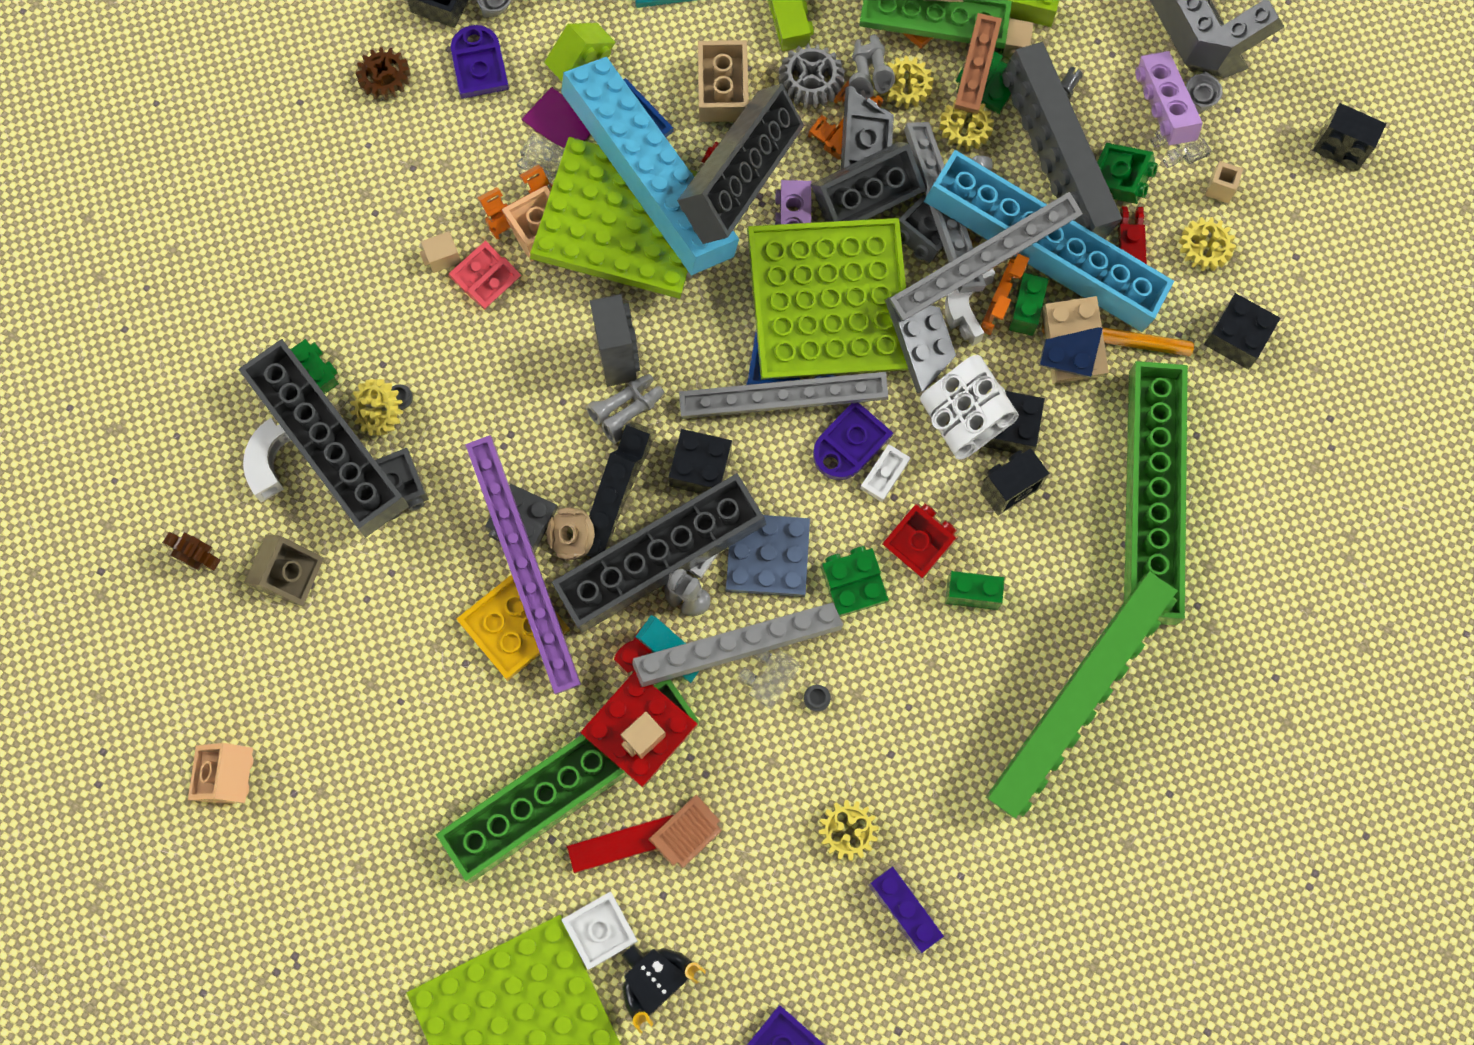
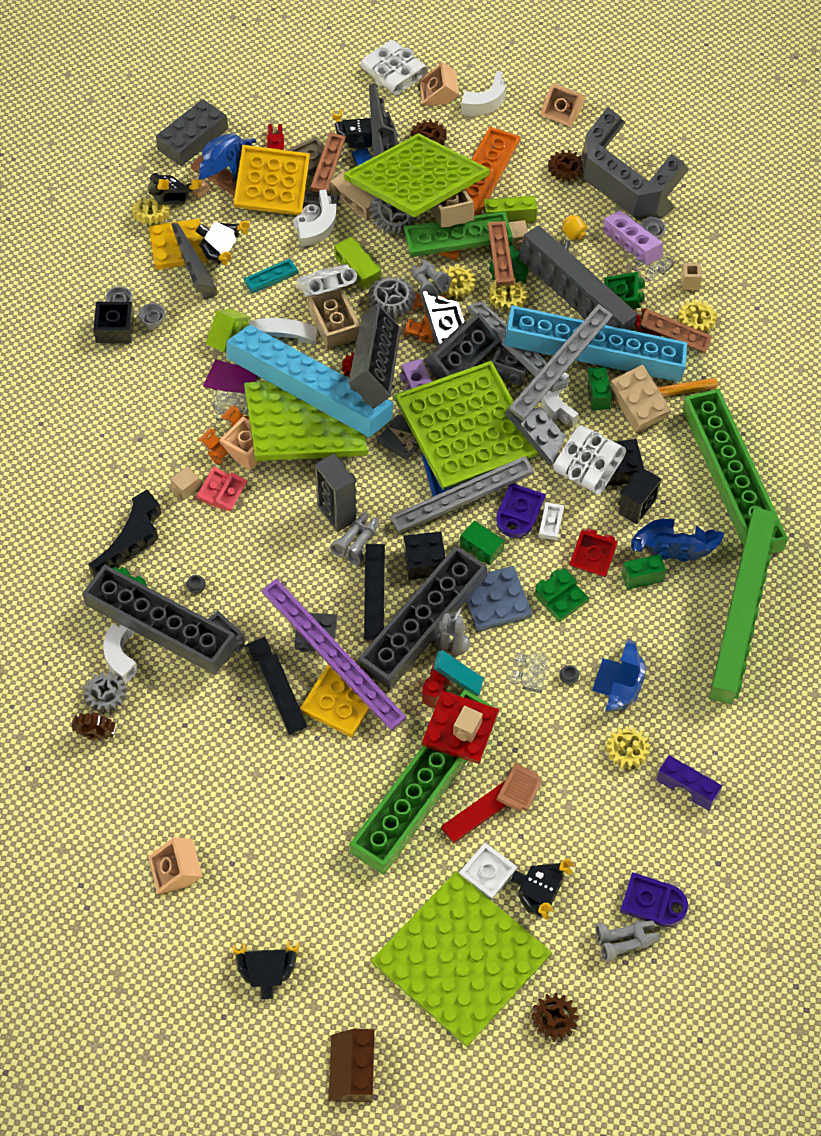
camera: 20 degrees left, 15 degrees down
(223, 515) = (103, 686): none -> light grey gear
(273, 954) = (266, 967): none -> black torso
(284, 569) = (162, 719): dark tan slope -> none
(349, 304) = (135, 535): none -> black arch
(378, 395) = (190, 584): light yellow gear -> none
(384, 76) = (94, 385): reddish brown gear -> none
(437, 574) = (276, 683): none -> black arch
(479, 63) = (159, 360): dark purple plate -> none
(582, 533) = (365, 631): tan tile -> none
(655, 74) = (287, 328): none -> white slope
(732, 25) = (326, 280): none -> white connector
(735, 283) = (398, 438): none -> dark grey tile
(736, 644) = (501, 654): light grey plate -> none
(781, 472) = (481, 543): none -> green brick
(880, 731) = (623, 679): none -> blue animal
(1000, 301) = (580, 391): orange piece -> none
(1017, 545) = (659, 538): none -> blue animal
(1072, 352) = (642, 403): dark blue wing -> none
(1097, 55) = (574, 227): none -> yellow head
(1167, 256) = (675, 330): none -> nougat plate
(1242, 331) = (743, 360): black brick -> none
(1349, 137) = (758, 225): black brick -> none

